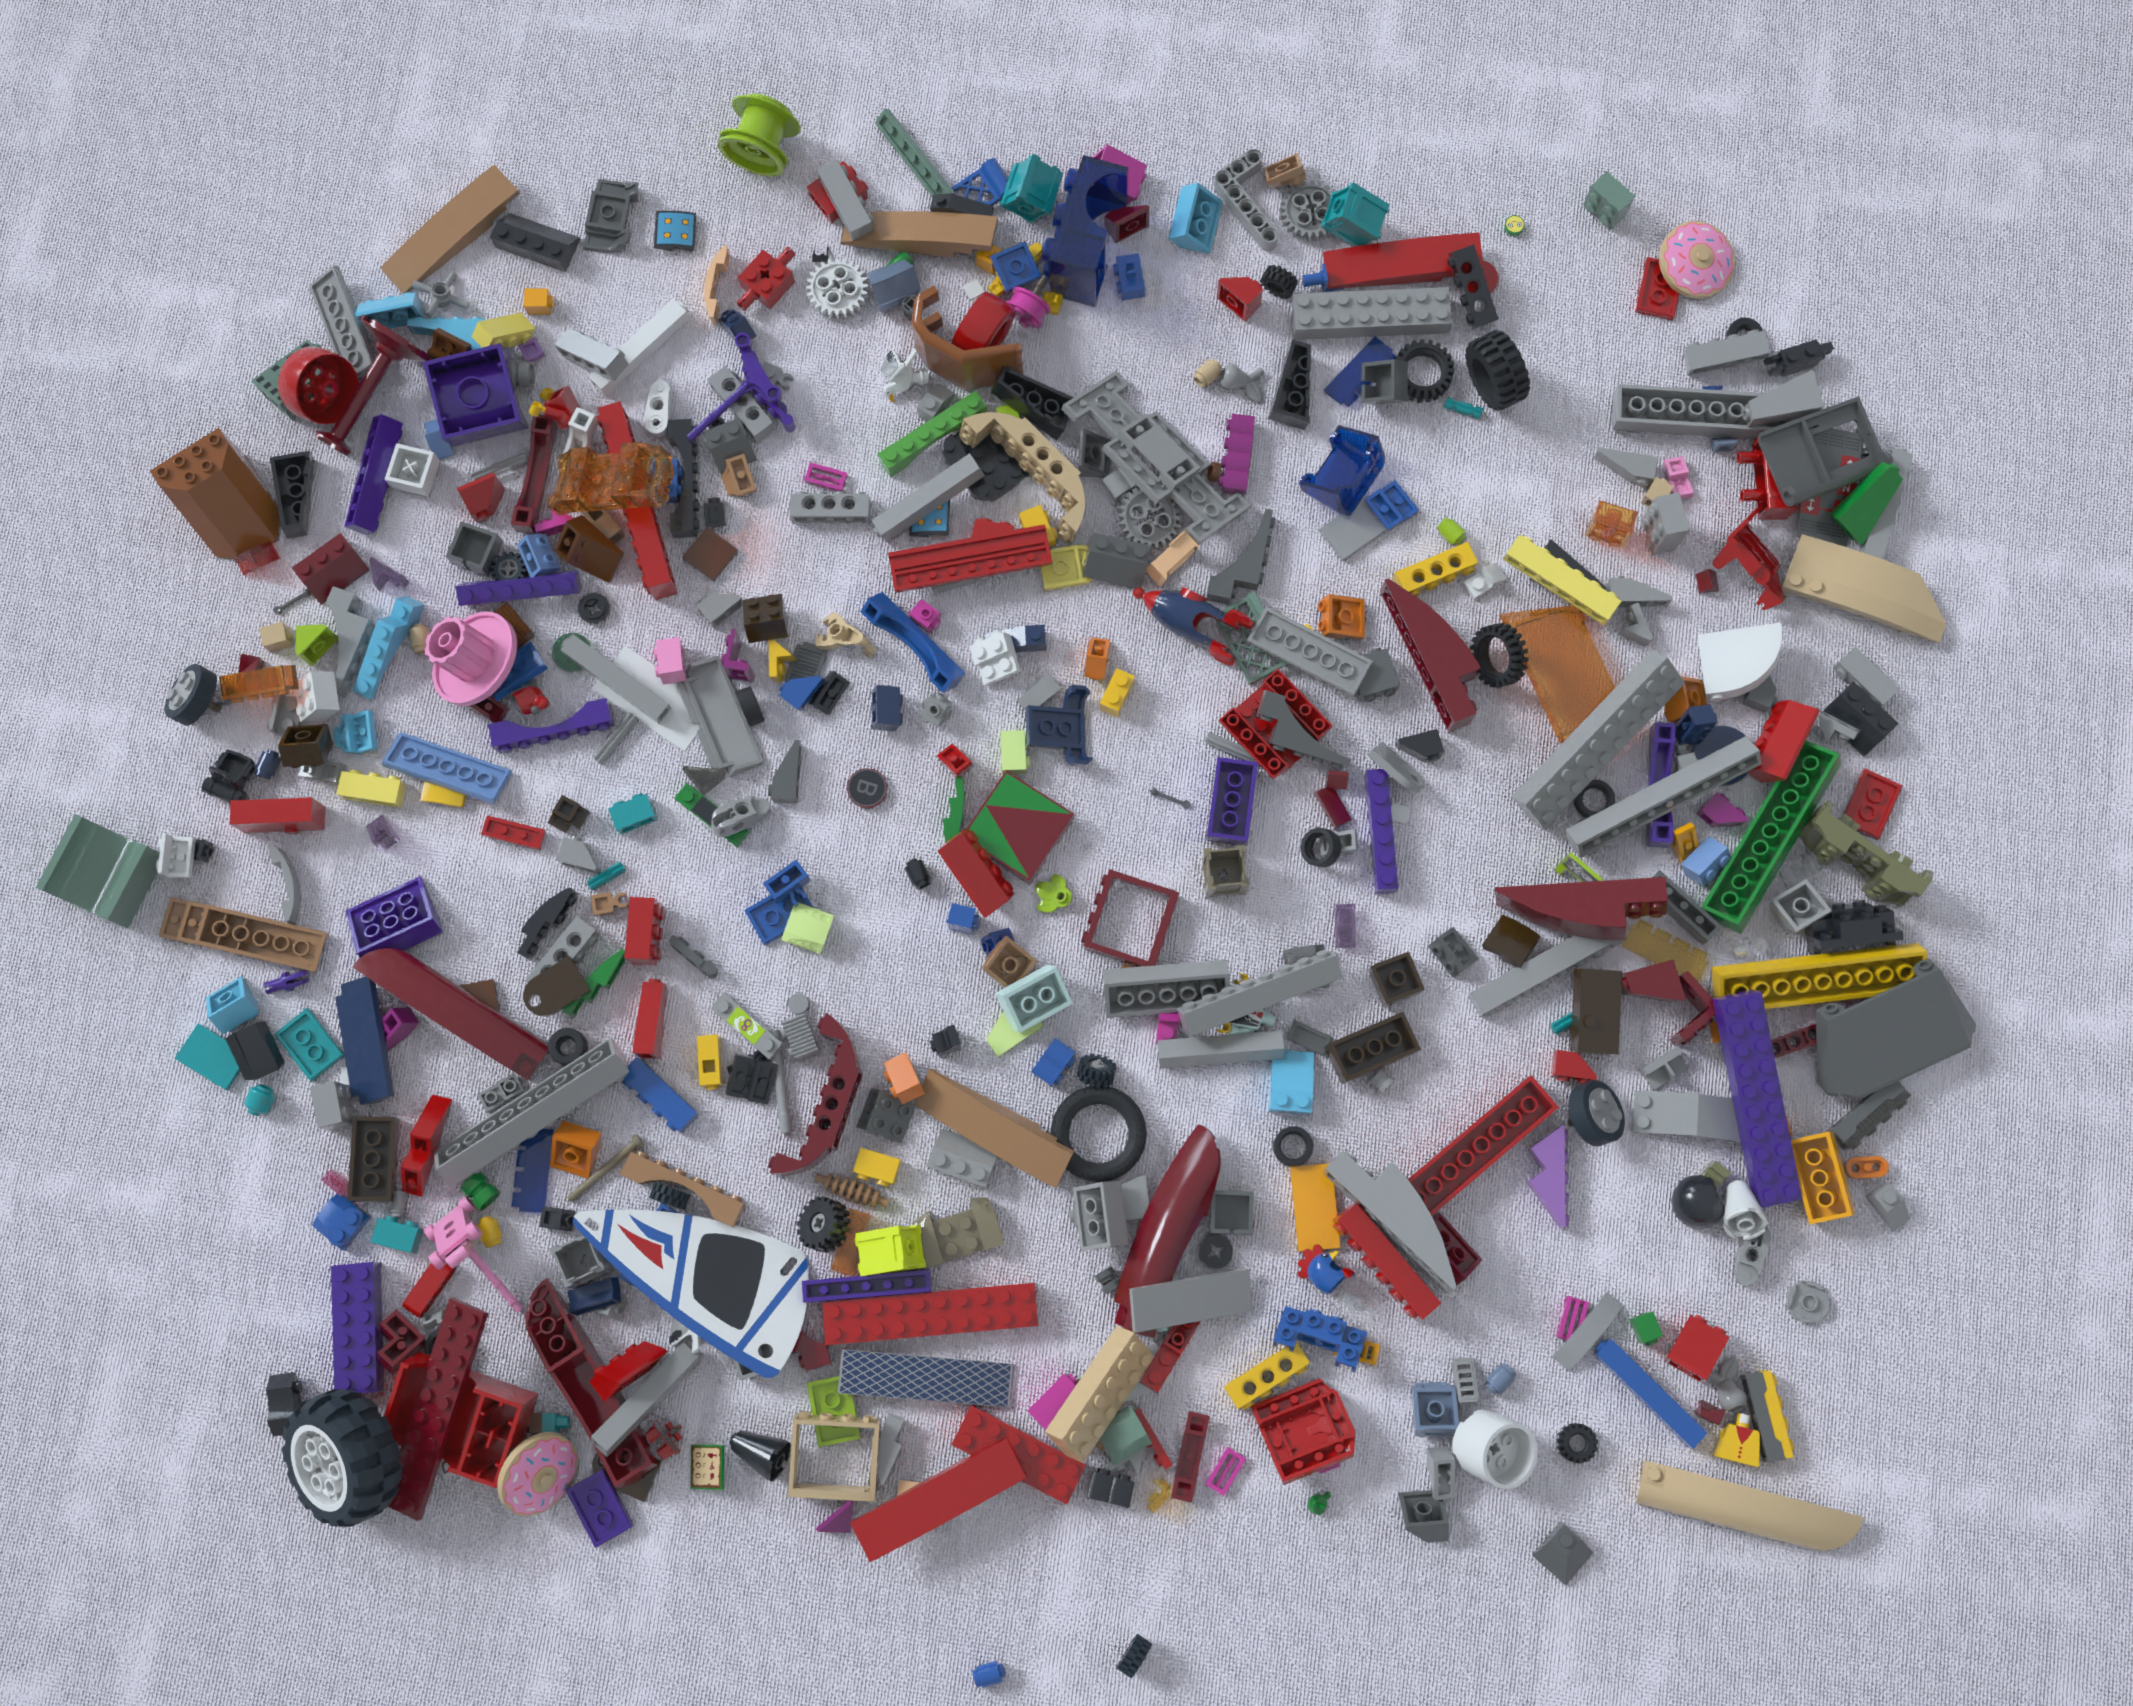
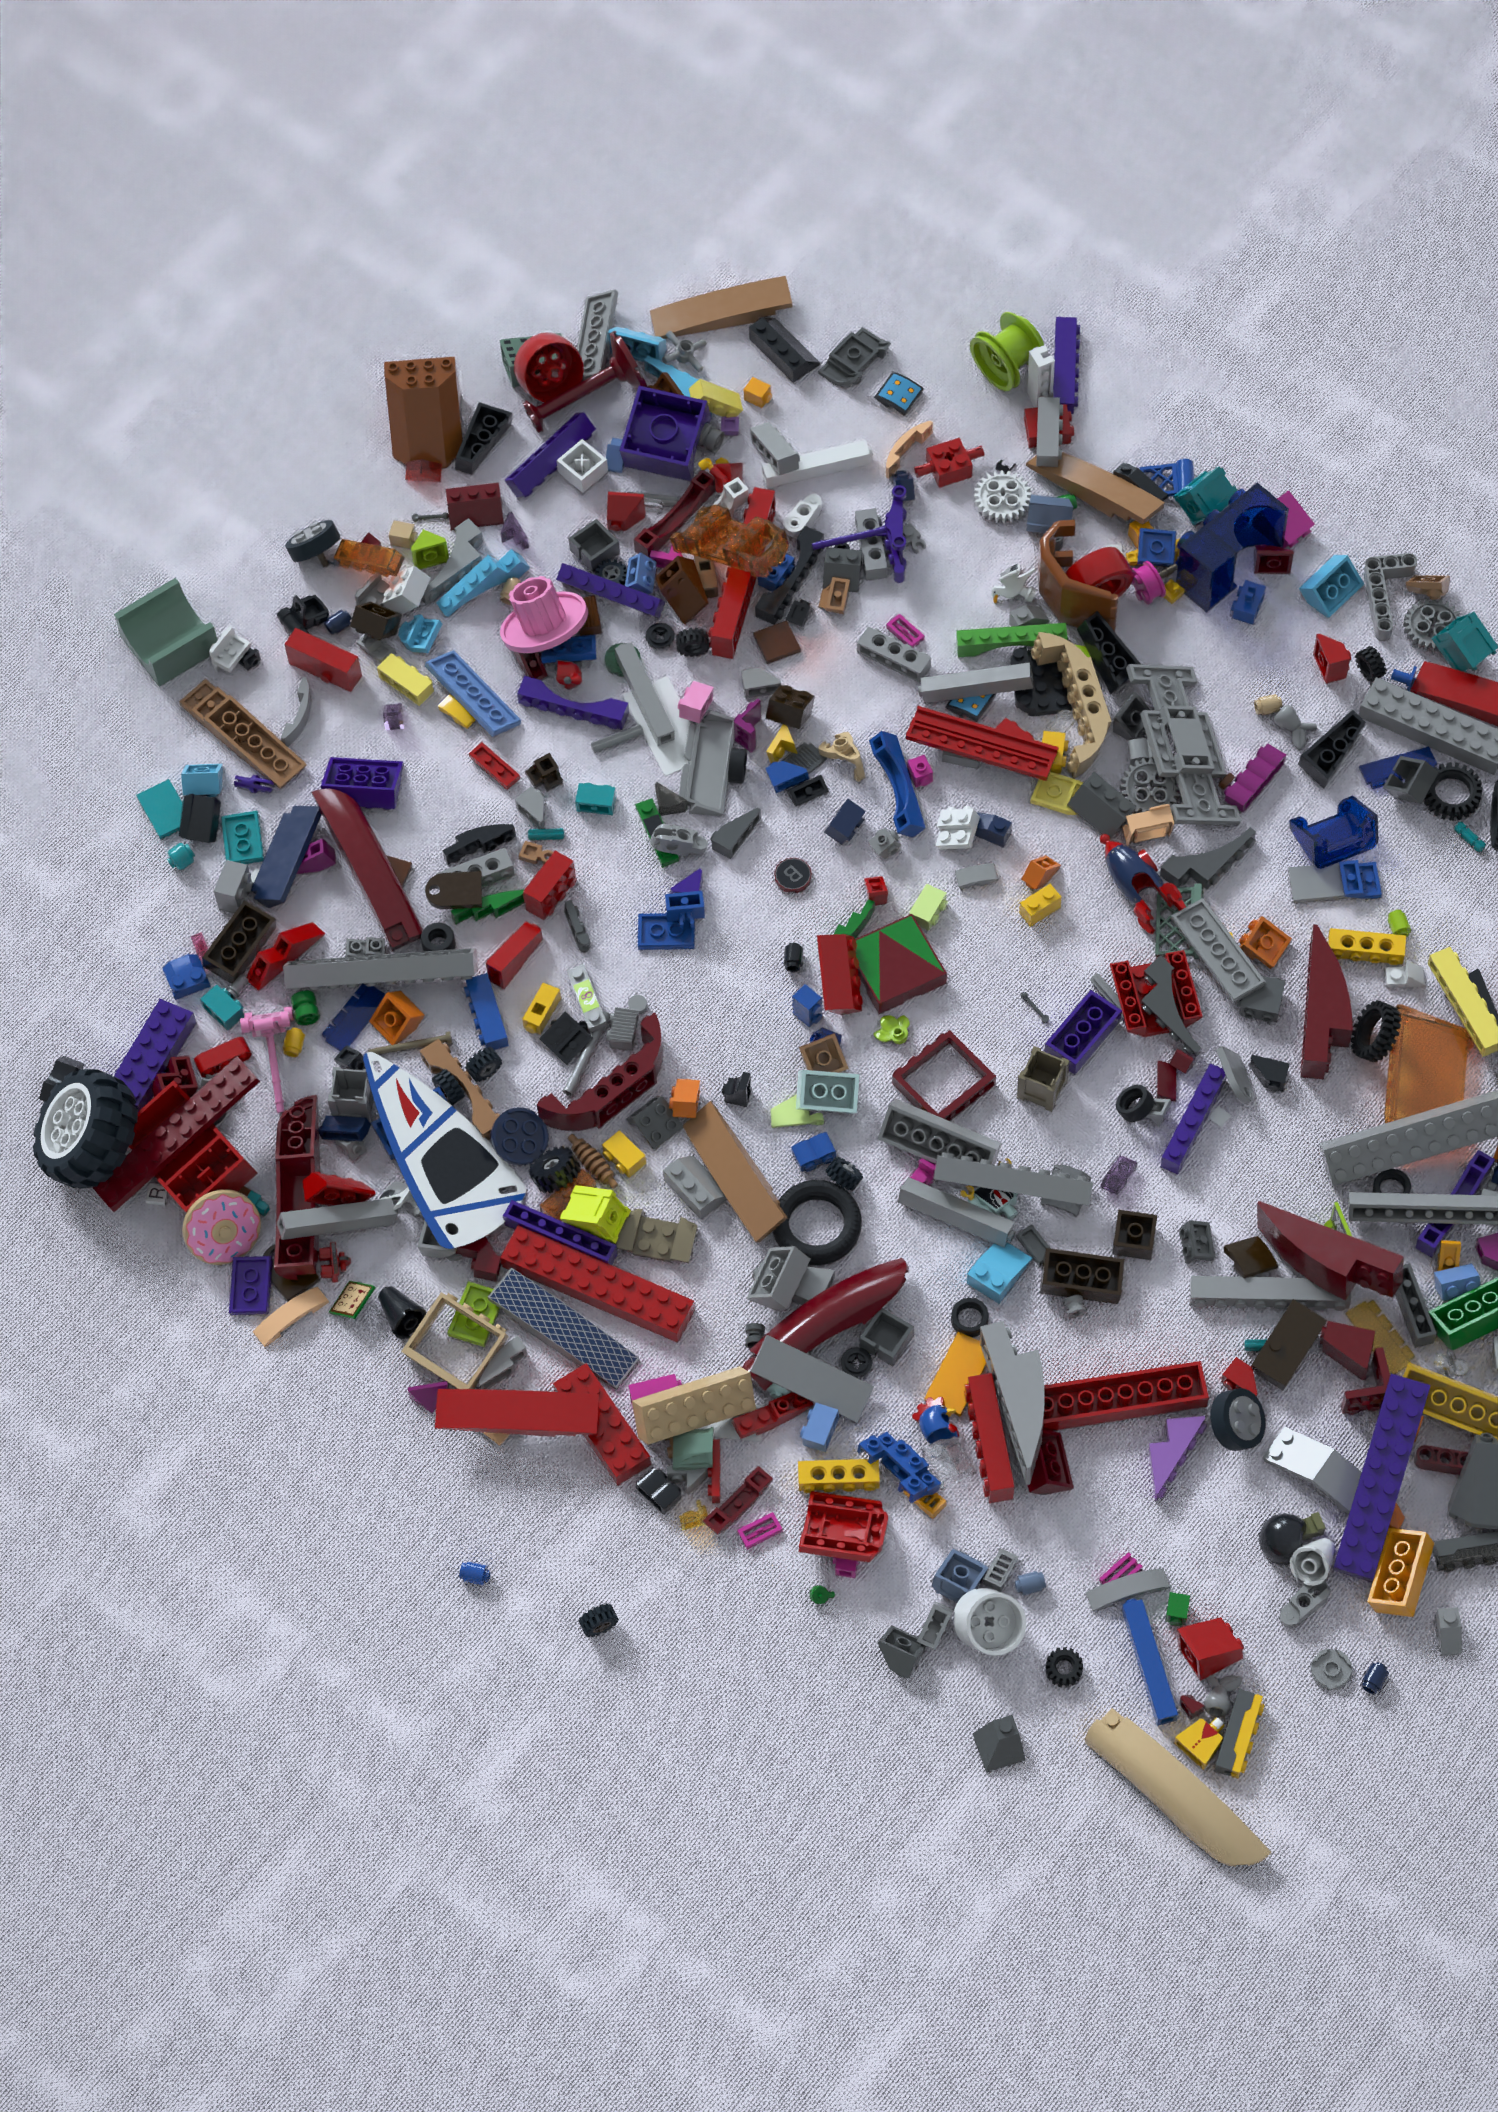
camera: 30 degrees right, 15 degrees down
(631, 600) = (692, 642): none -> black tyre
(656, 1514) = (288, 1314): none -> light nougat slope
(689, 1153) = (483, 1064): none -> black wheel
(767, 1206) = (519, 1136): none -> dark blue tile
(777, 858) = (690, 883): none -> dark purple slope
(805, 145) = (1040, 374): none -> white brick
(807, 927) = (679, 950): yellowish green slope -> none
(815, 116) = (1065, 361): none -> dark purple brick
(912, 154) = (1126, 425): sand green plate -> none
(1061, 726) = (977, 906): dark blue piece -> none
(1223, 1339) = (820, 1427): none -> medium blue brick
(1664, 1068) = (1321, 1422): light grey panel -> none
(1852, 1289) = (1375, 1678): none -> dark blue brick
(1865, 1168) = (1448, 1589): orange plate -> none

